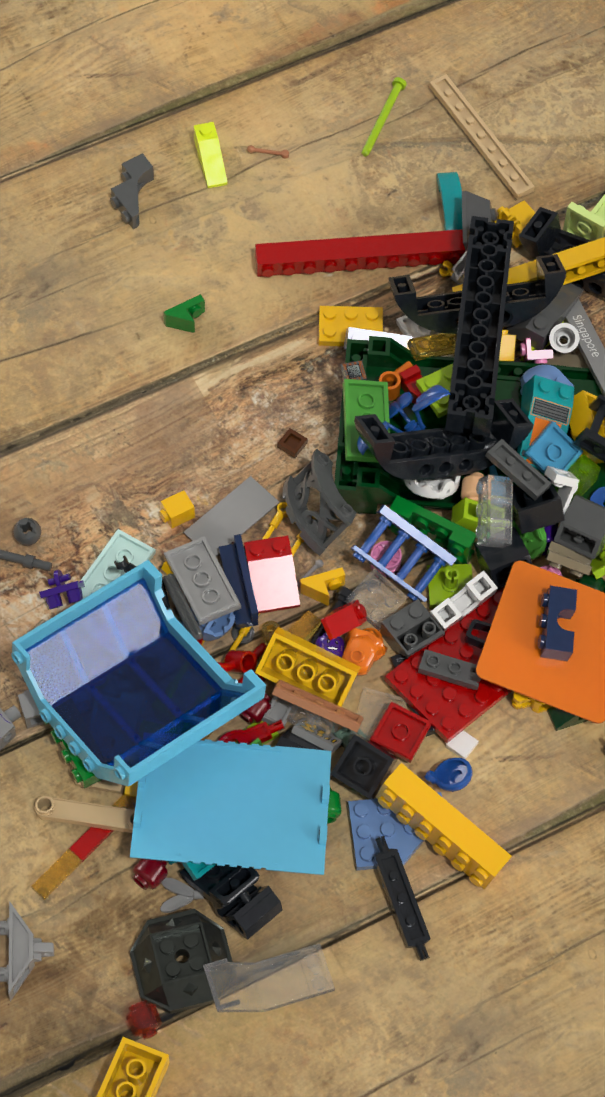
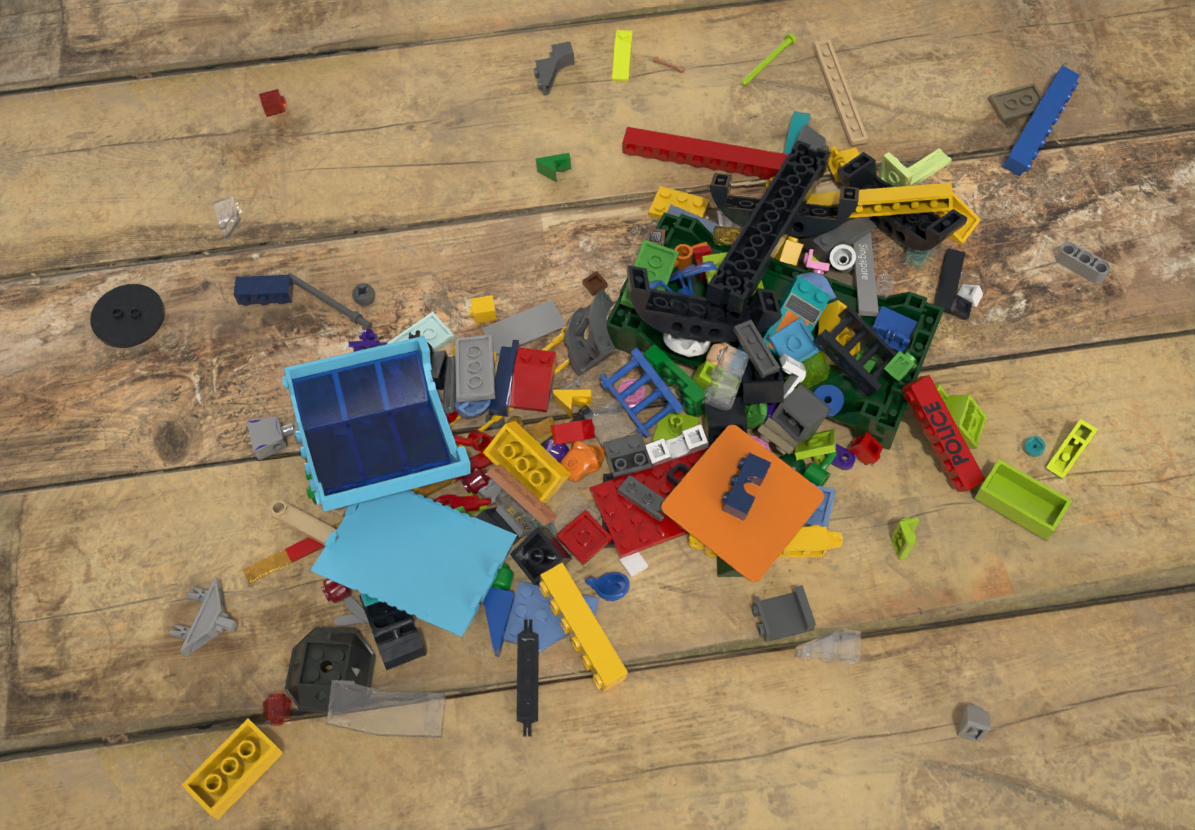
camera: 25 degrees right, 0 degrees up
(341, 846) = (498, 609): none -> blue slope

